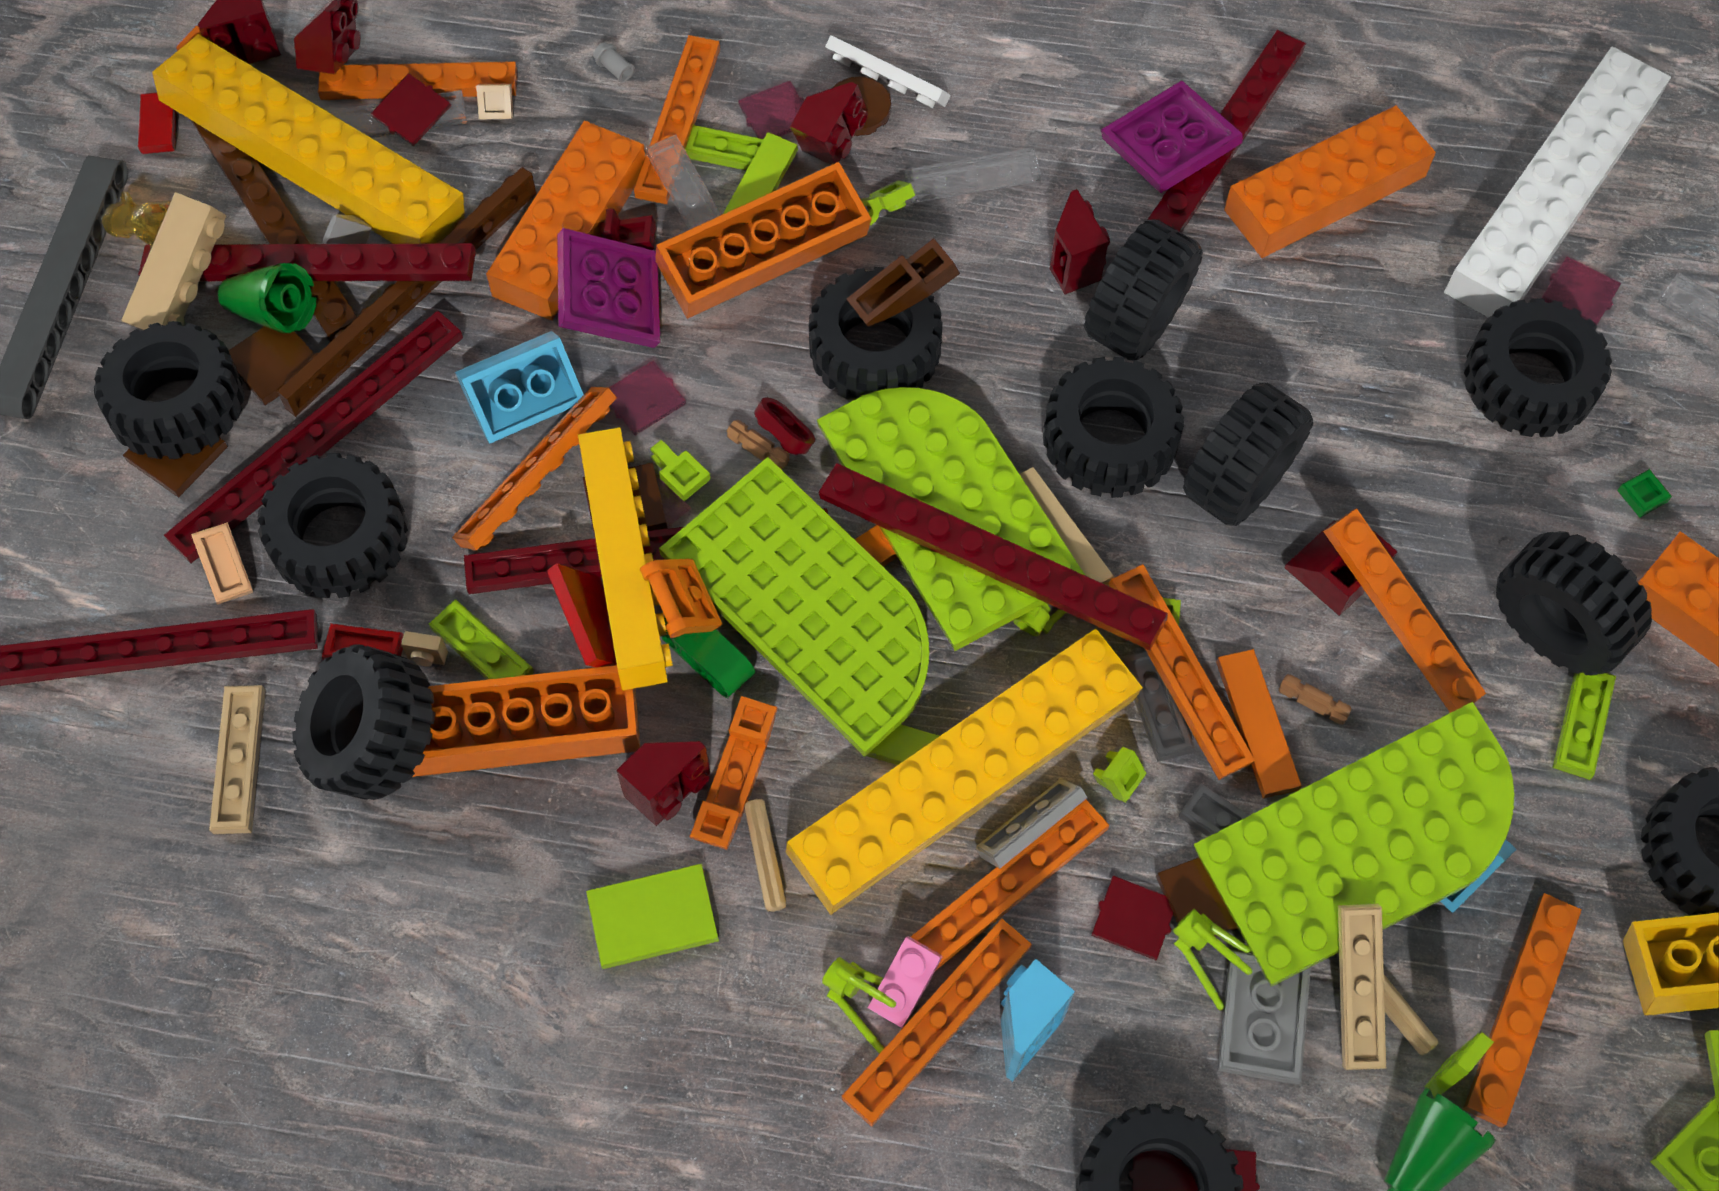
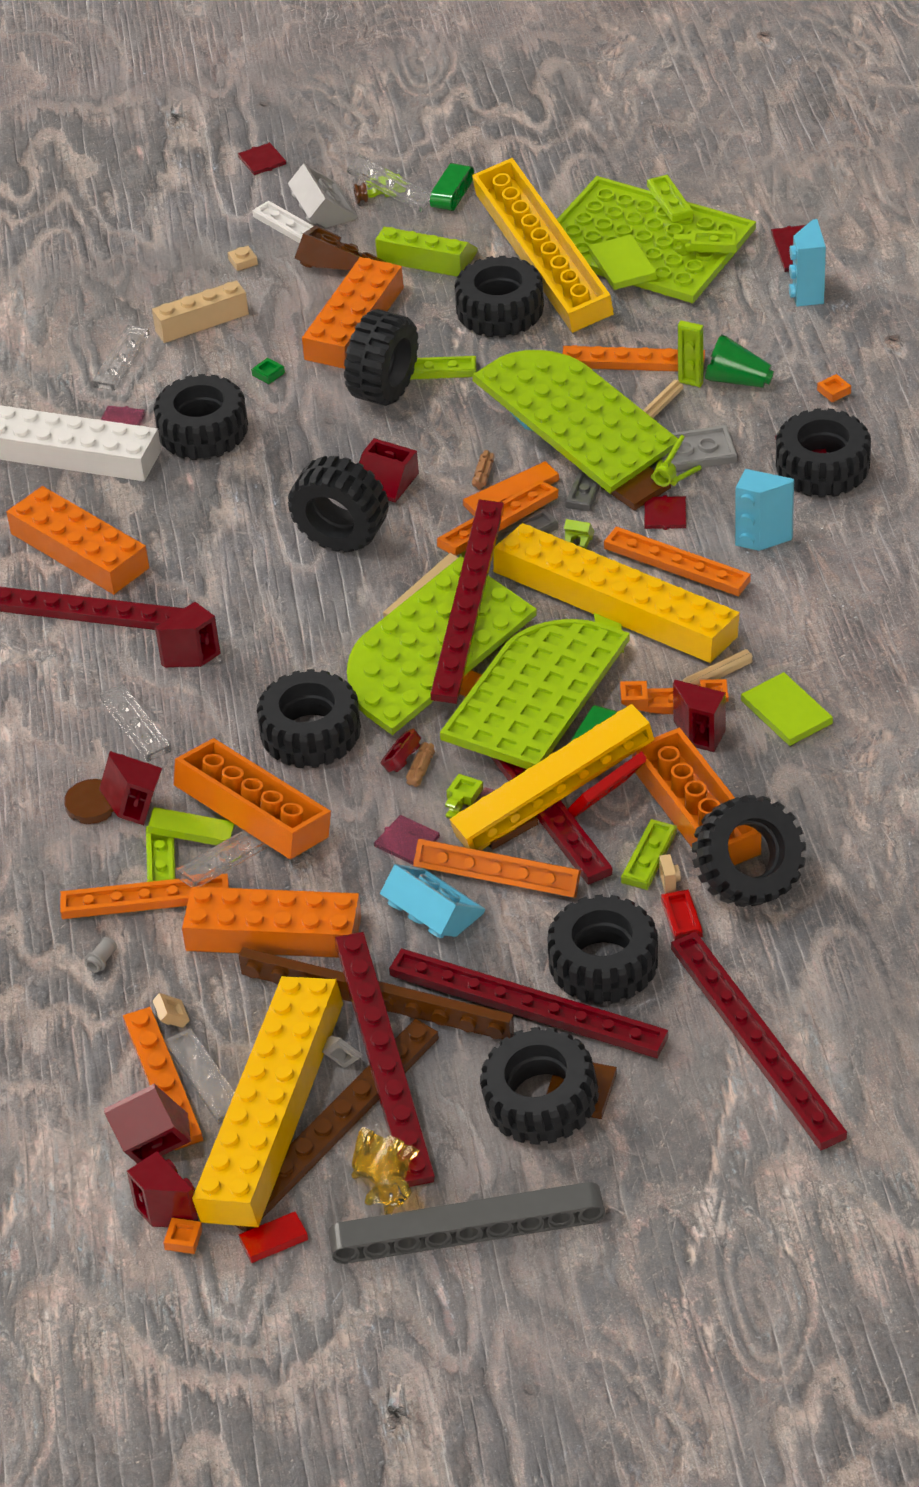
camera: 105 degrees left, 20 degrees down
(175, 263) = (429, 1127): tan brick -> none
(222, 563) = (661, 1009): light nougat tile -> none
(237, 760) = (799, 949): tan tile -> none
(269, 360) = (464, 1059): reddish brown tile -> none
(271, 297) = (427, 1066): green cone -> none
(411, 109) = (200, 1059): dark red piece -> none
(608, 288) = (333, 865): magenta plate -> none
(632, 231) = (268, 878): dark red bracket -> none
(689, 592) = (575, 728): orange plate -> none
(772, 110) = (112, 849): clear pink piece -> none
(847, 980) = (777, 611): lime plant -> none
(875, 67) = (53, 796): white plate -> none
(889, 198) = (172, 749): lime plate -> none
(903, 283) = (276, 684): reddish brown slope -> none
(906, 980) = (764, 582): bright pink plate -> none
(936, 1022) = (781, 567): orange plate -> none
(1030, 823) = (634, 557): light grey tile -> none
(1121, 388) = (336, 607): black tyre -> none
(1143, 289) = (238, 558): black tyre -> none
(1171, 136) = (68, 619): magenta plate -> none
(1362, 986) = (662, 402): tan tile -> none
(1404, 611) = (412, 431): orange plate -> none

